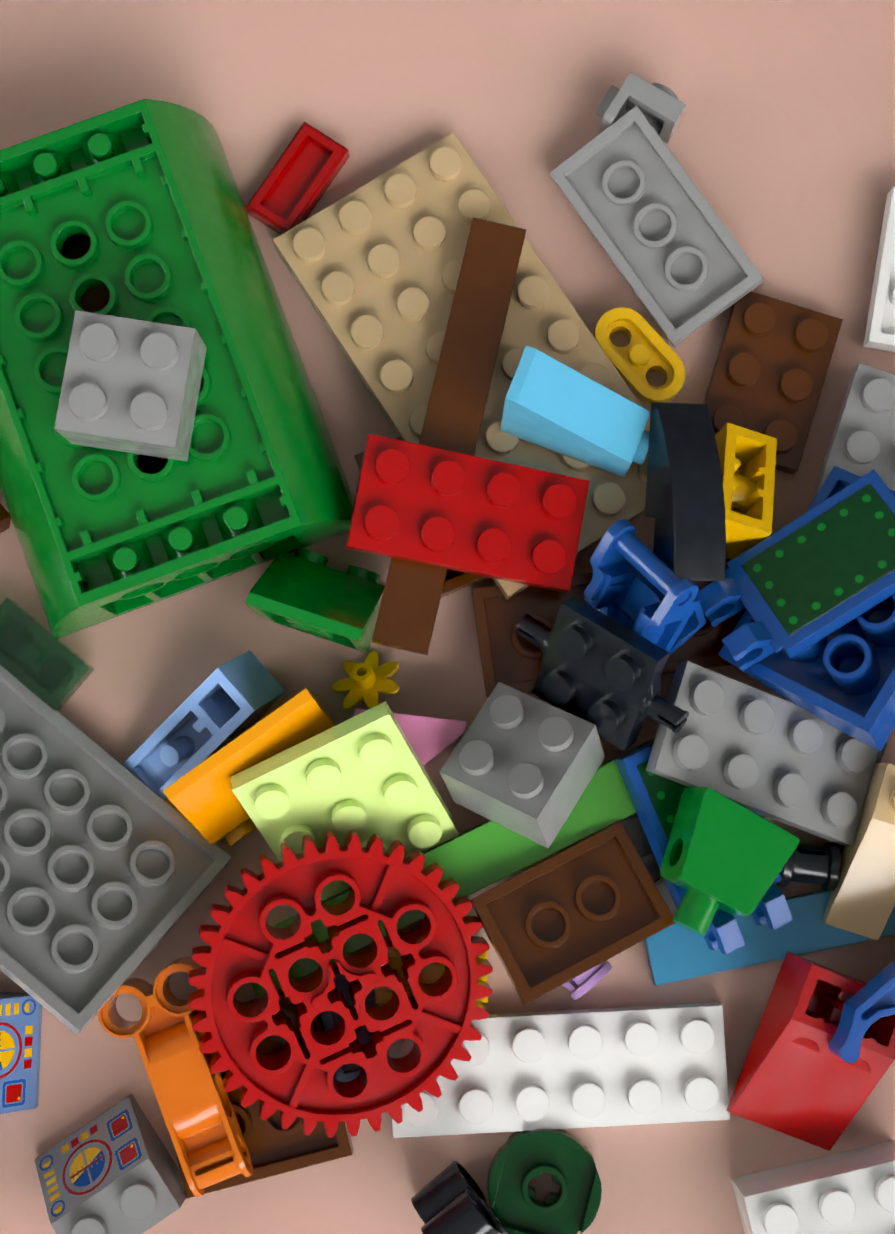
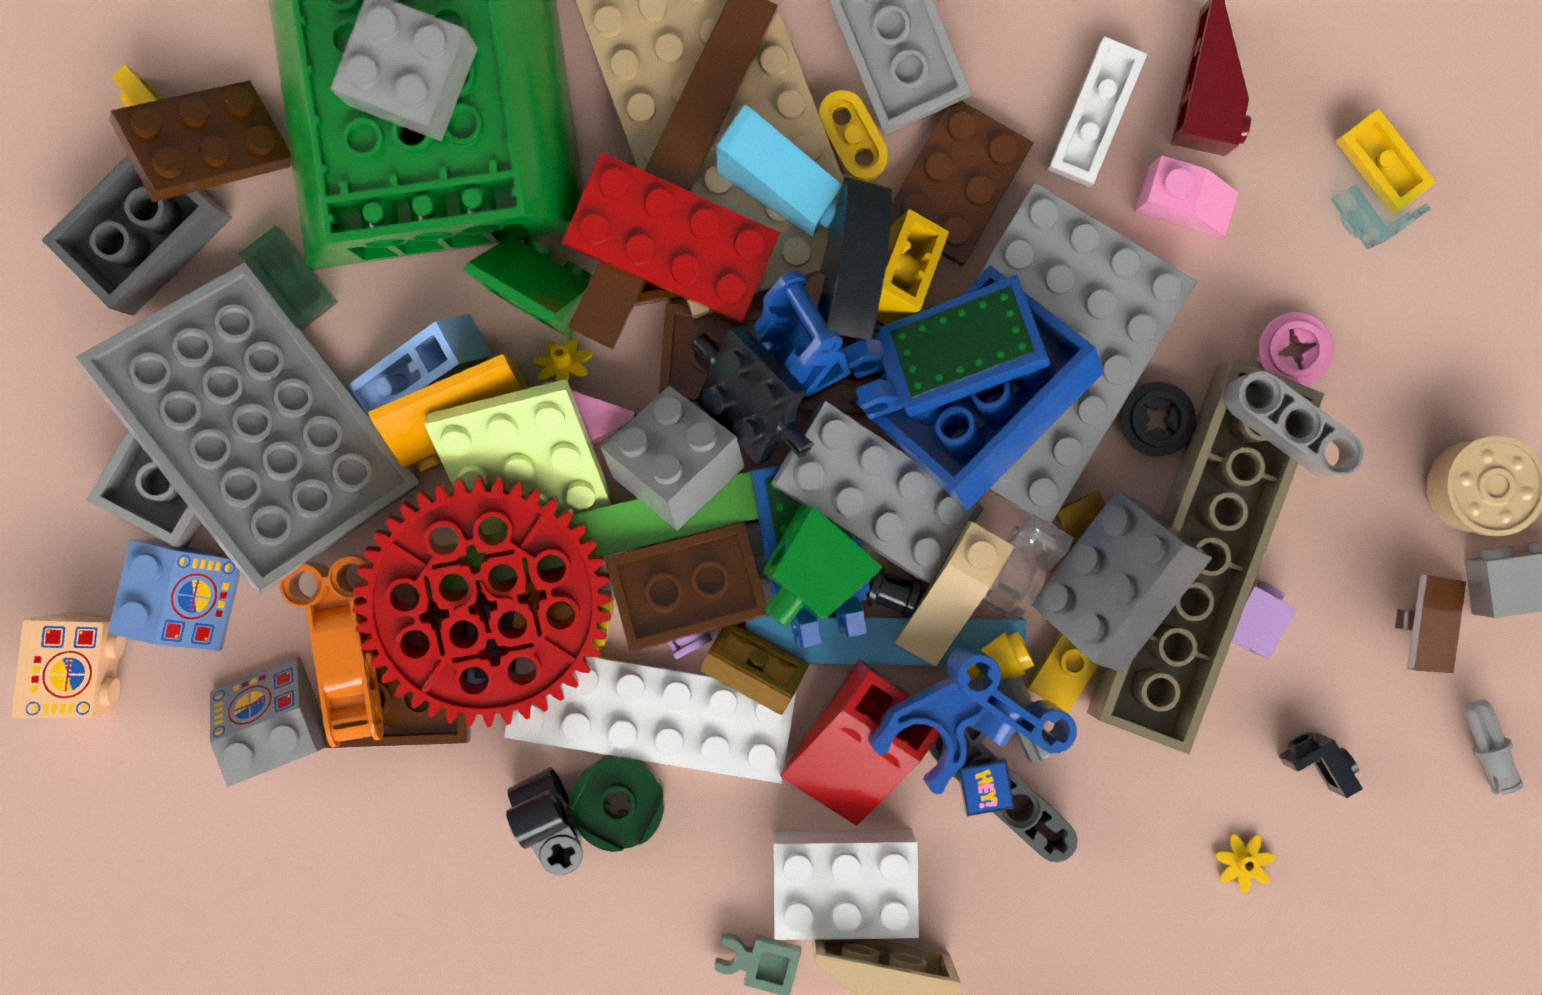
camera: 15 degrees right, 5 degrees up
(670, 989) = (754, 667): none -> pearl gold slope

